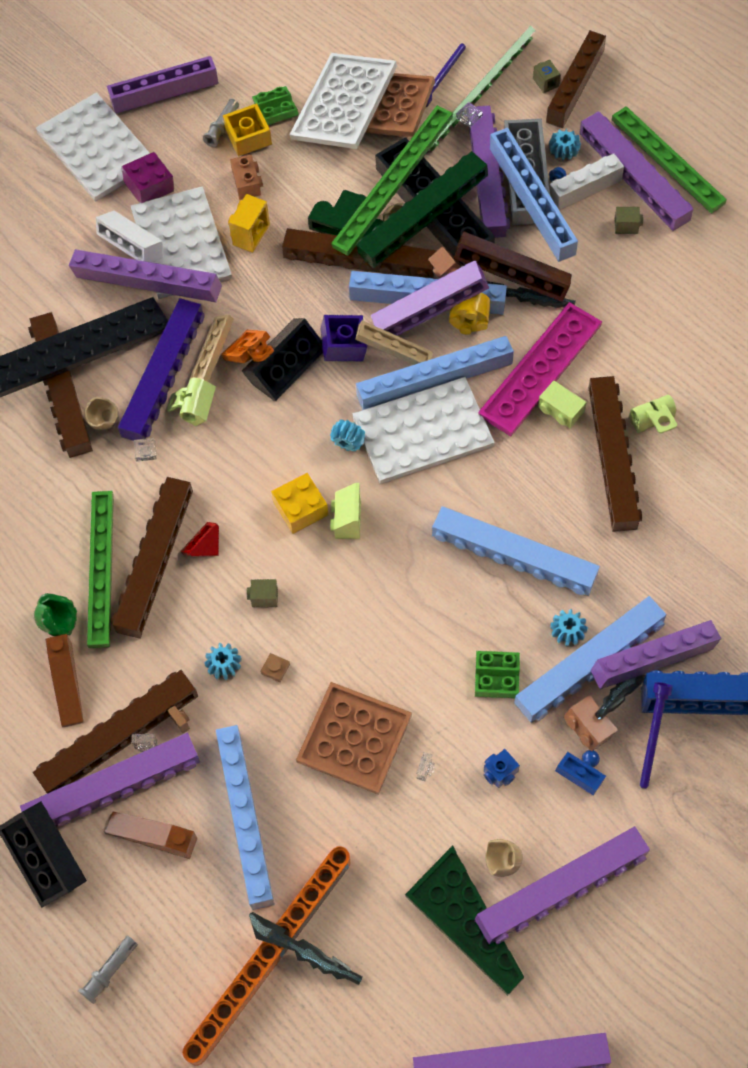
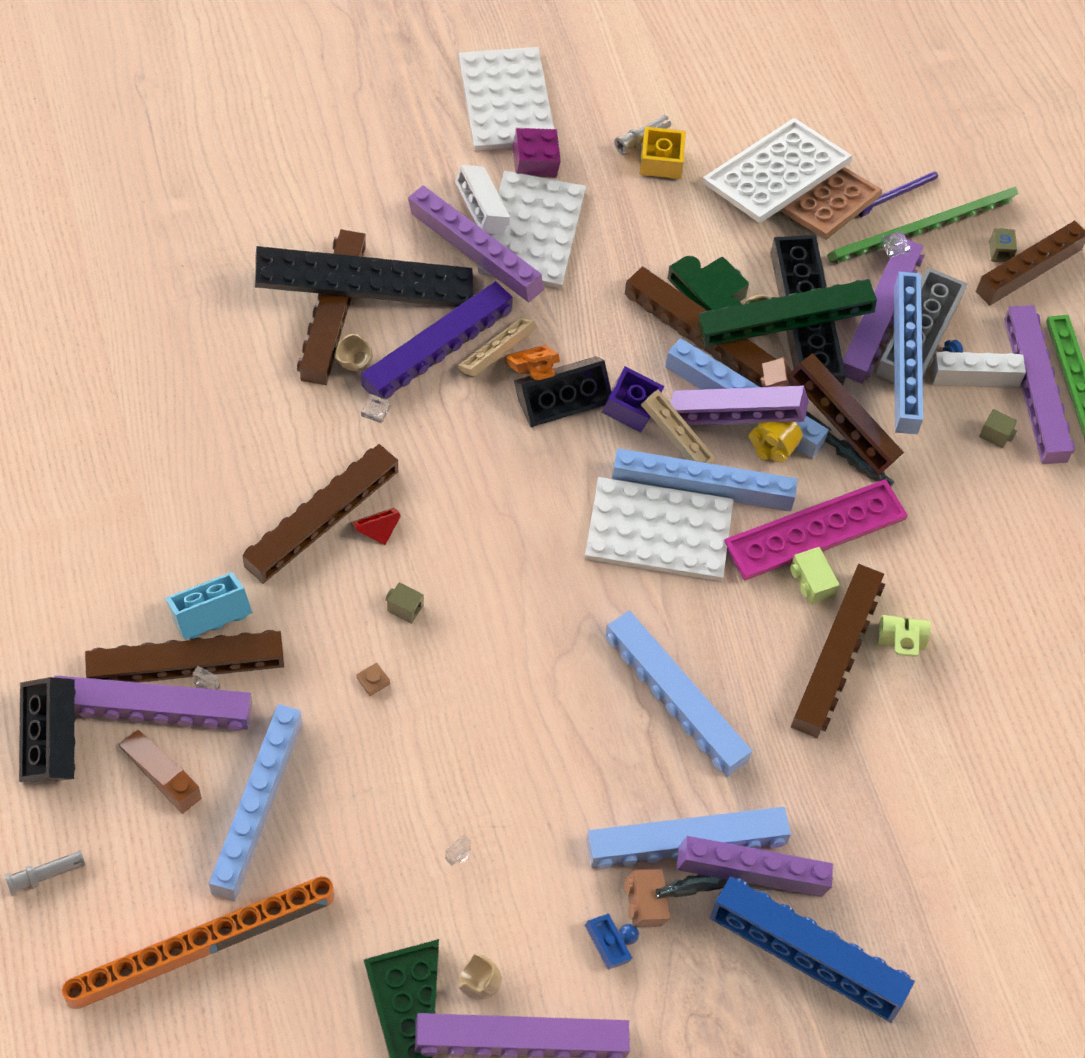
camera: 20 degrees right, 5 degrees down
(55, 614) = (196, 519): green hair -> none
(64, 679) = (168, 581): dark orange slope -> none
(100, 570) = (264, 499): bright green plate -> none
(111, 680) = (208, 606): none -> medium azure brick
(162, 84) = (606, 69): medium lavender brick -> none
(180, 719) = (253, 677): medium nougat plate -> none
(193, 401) = (449, 386): yellowish green piece -> none
(231, 661) = (317, 645): medium azure gear -> none
(245, 176) = (634, 197): nougat brick -> none
(249, 223) = (608, 243): yellow brick -> none
(276, 105) = (706, 143): bright green slope -> none
(300, 503) = (492, 535): yellow brick -> none
(305, 951) = (234, 957): pearl dark grey sword -> none
(347, 435) = (579, 494): medium azure gear -> none
(347, 513) = (533, 569): yellowish green slope -> none
(354, 738) = (407, 786): nougat plate -> none
(392, 180) = (775, 269): bright green plate -> none
(497, 674) = (585, 801): bright green slope -> none
(500, 768) = (530, 892): blue brick -> none
(564, 144) = (979, 322): medium azure gear -> none
(577, 627) = (680, 787): medium azure gear -> none
(661, 691) = (732, 902): dark purple piece -> none

